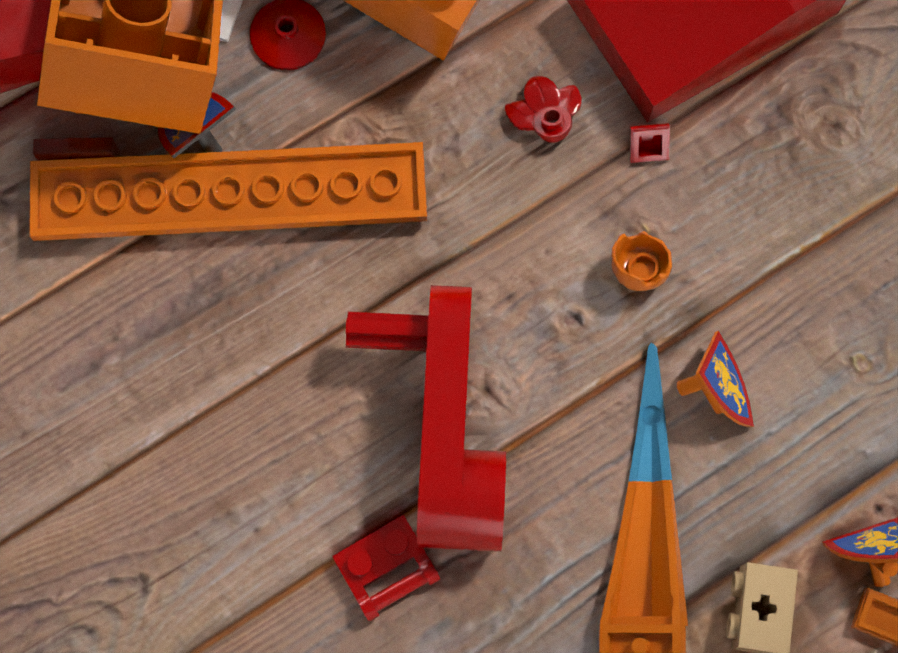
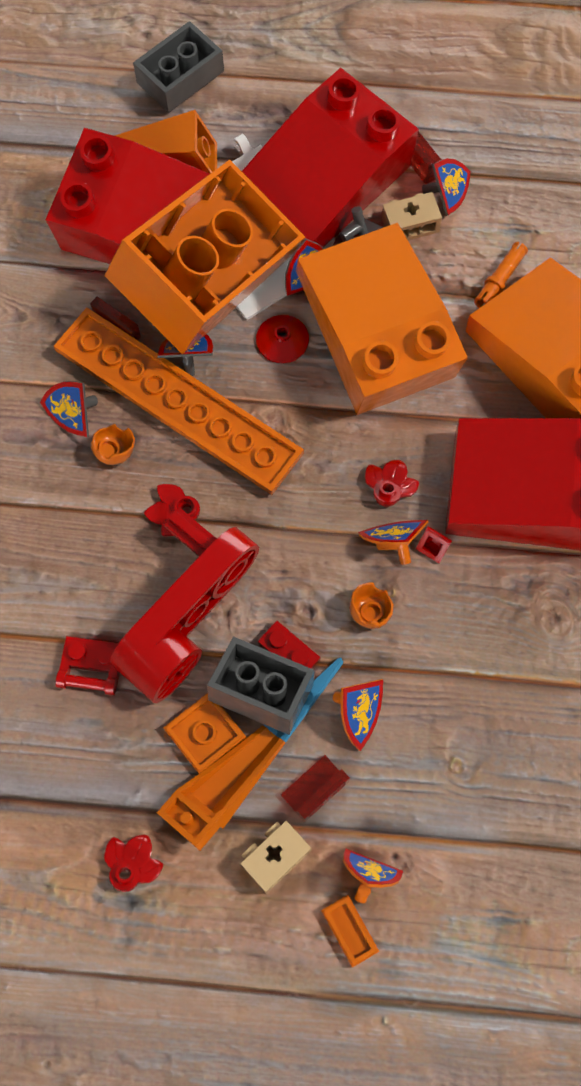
camera: 40 degrees right, 5 degrees down
(110, 293) = (68, 406): none -> shield
(200, 298) = (112, 445): none -> orange hair
(323, 324) = (172, 500): none -> red plate
(574, 540) = (204, 733): none -> orange tile
(589, 378) = (286, 644): none -> red plate
(600, 439) = (260, 685): none -> dark grey brick
(602, 163) = (395, 537): none -> shield
(742, 504) = (315, 788): none -> clear red panel

